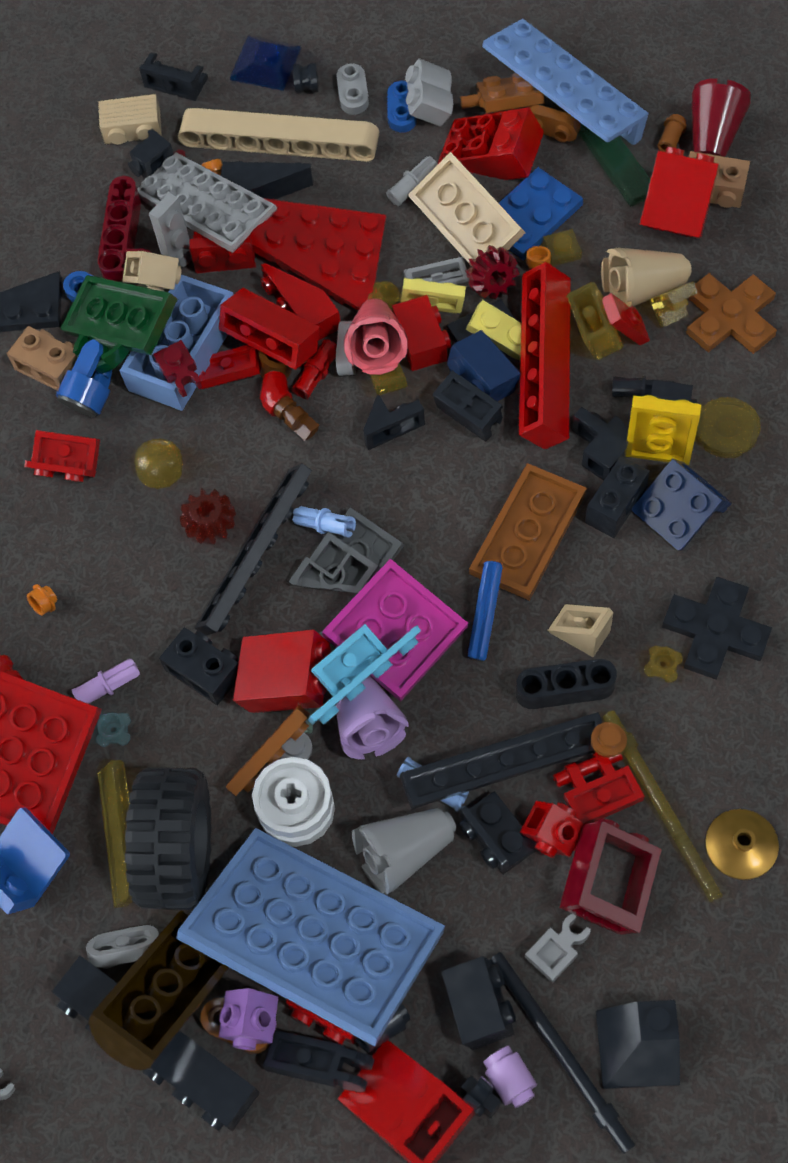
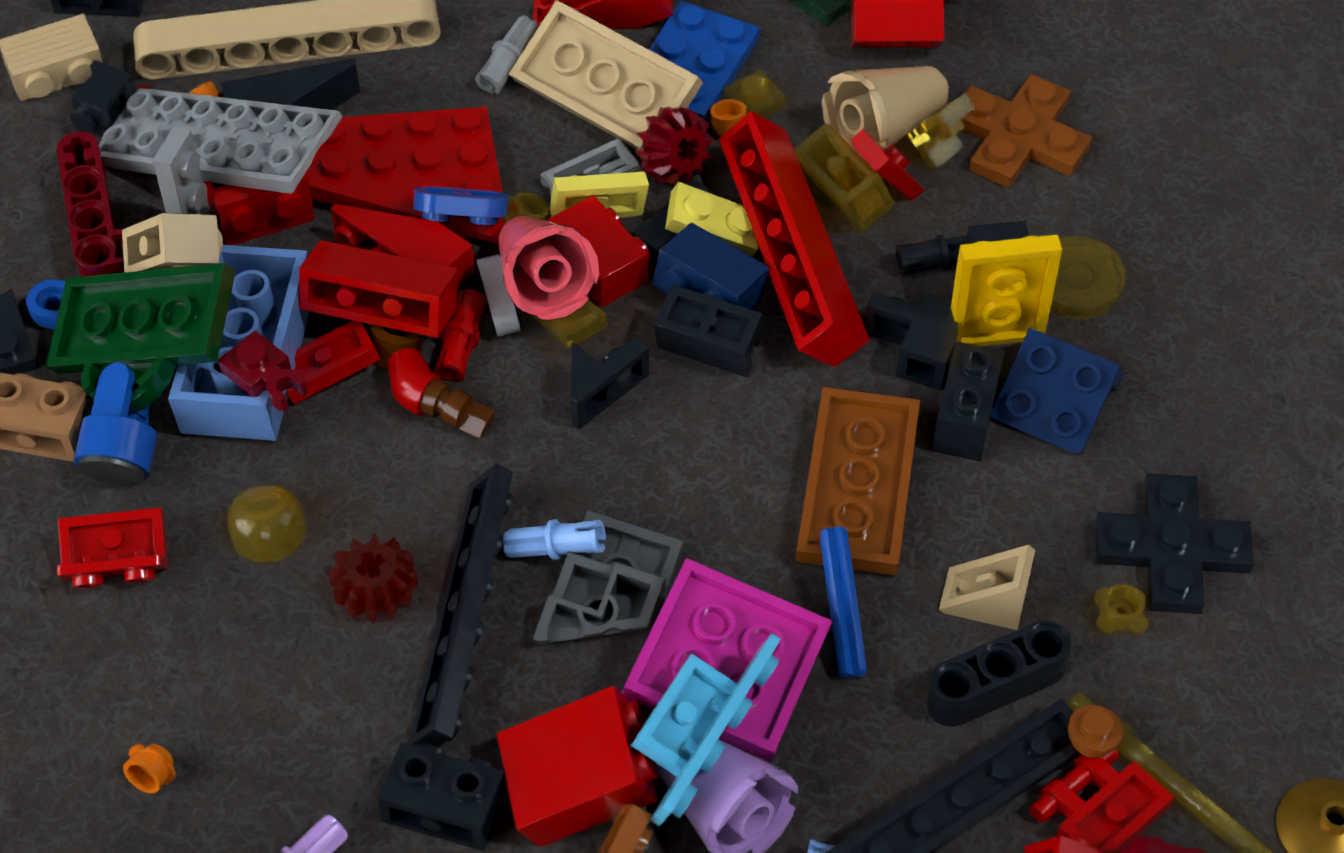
camera: 25 degrees left, 10 degrees down
(331, 277) = (442, 202): none -> blue plate

